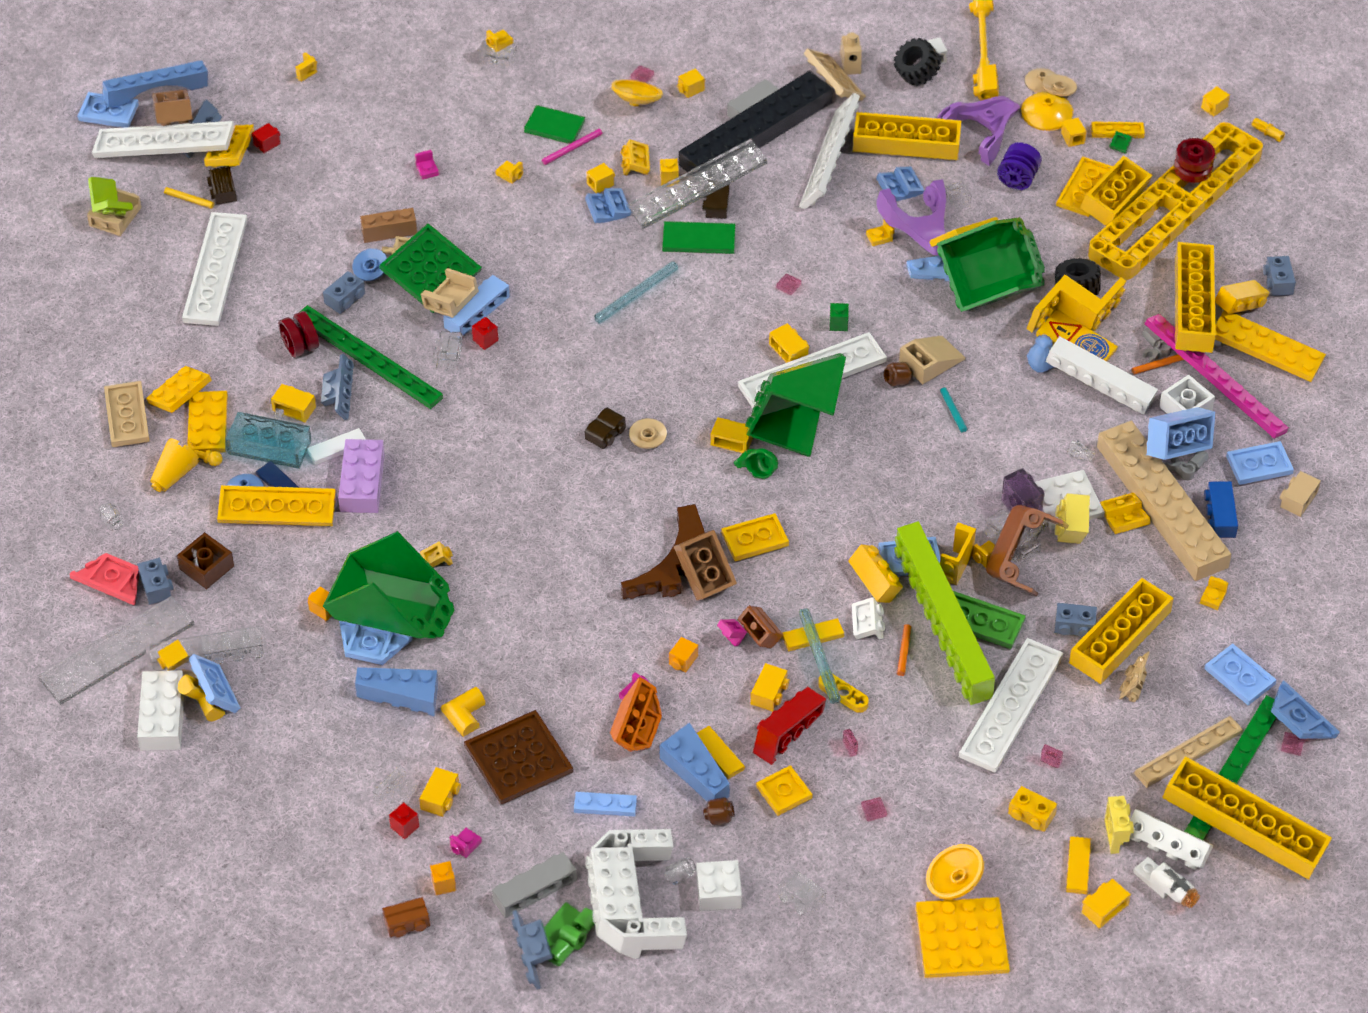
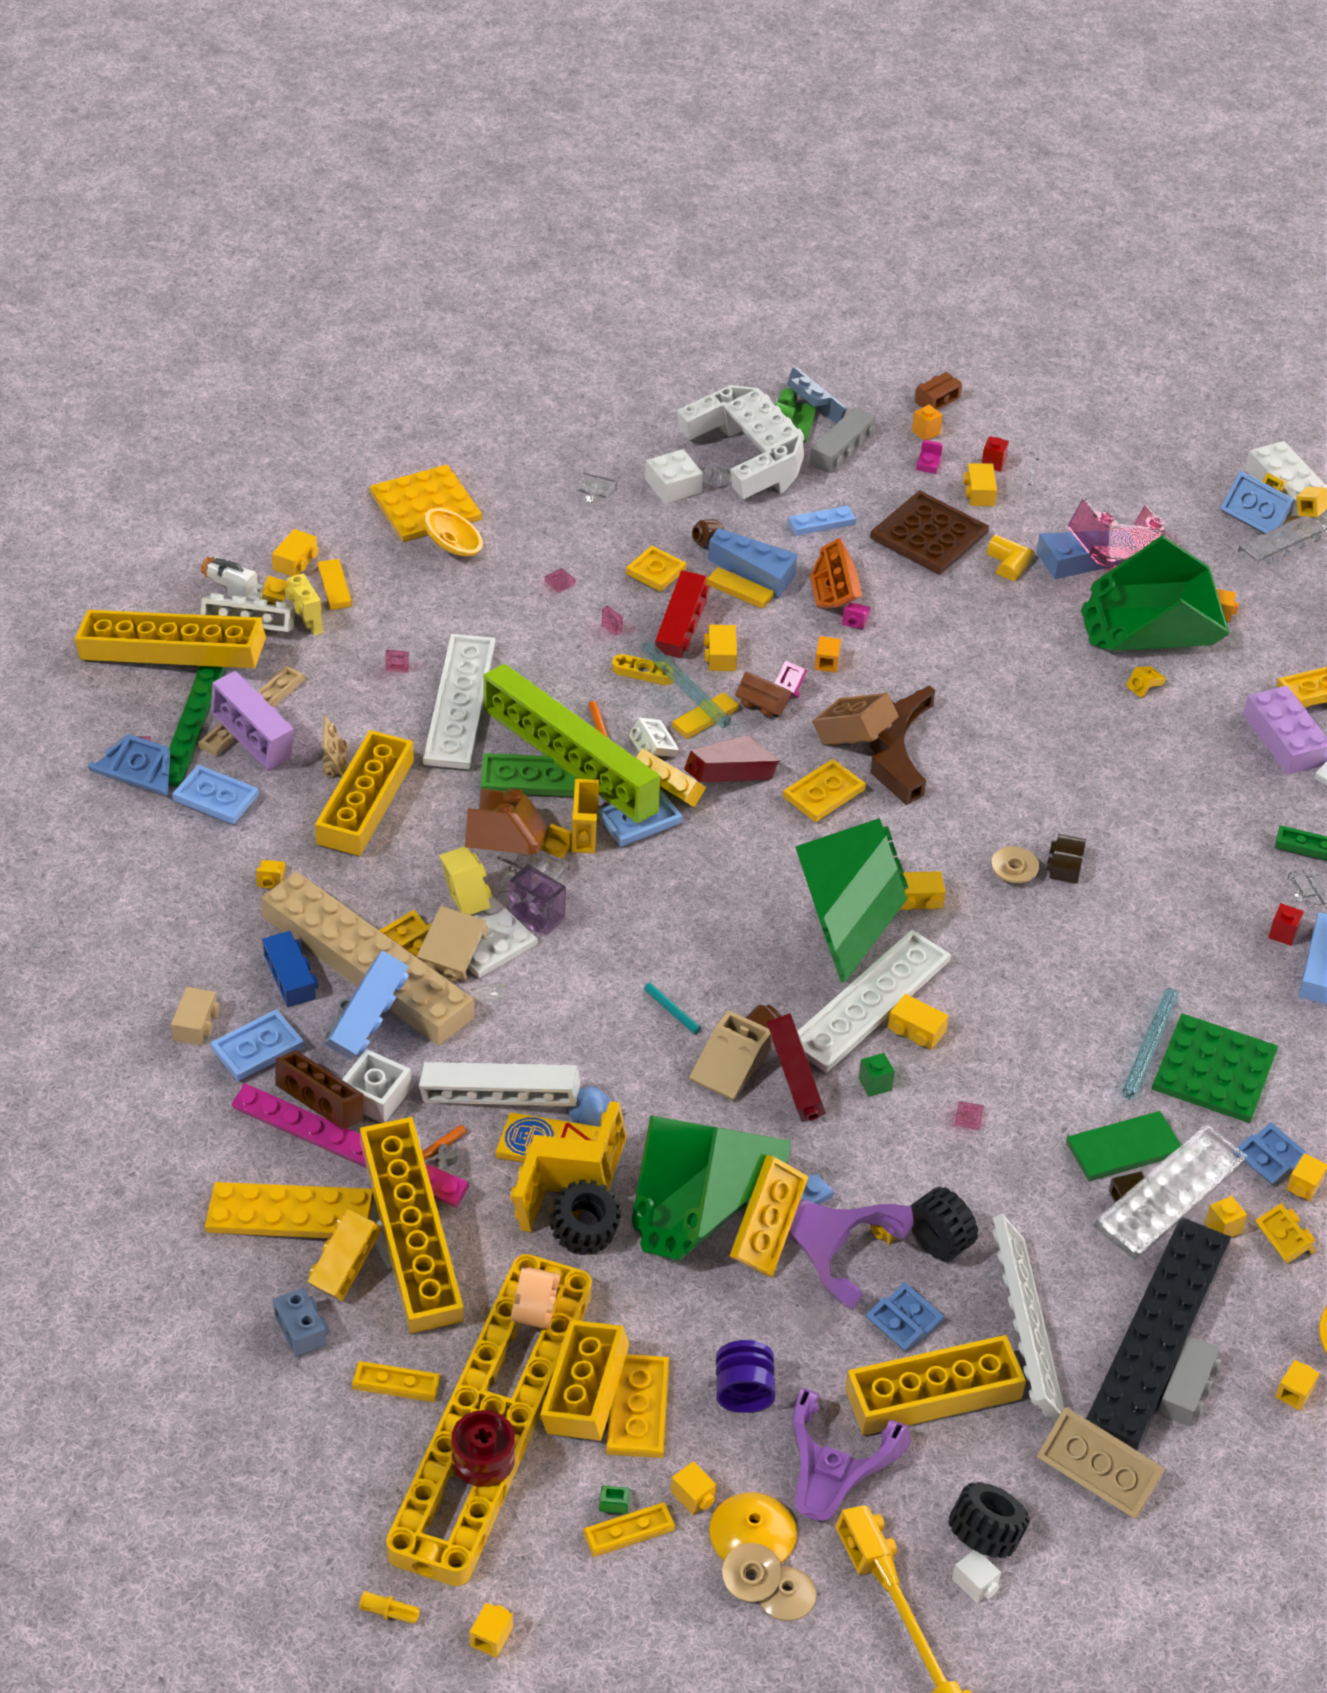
camera: 155 degrees right, 5 degrees down
(392, 657) = (1113, 542): none -> clear pink windscreen
(603, 266) = (1215, 1068): none -> green plate
(820, 567) = (731, 761): none -> dark red slope
(851, 46) = (1098, 1511): tan torso -> none
(854, 206) = (943, 1224): none -> black tyre
(894, 327) = (796, 1068): none -> dark red slope
(1032, 809) = (398, 611): yellow brick -> none
(1074, 619) = (421, 789): sand blue brick -> none
(1098, 483) = (452, 942): none -> tan panel
(1134, 222) = (535, 1297): none -> light nougat brick
(1141, 848) = (273, 590): none -> yellow brick
(1197, 710) = (251, 720): none -> lavender brick
(1227, 238) = (396, 1381): none -> yellow tile
(1228, 403) = (319, 1089): none -> reddish brown brick

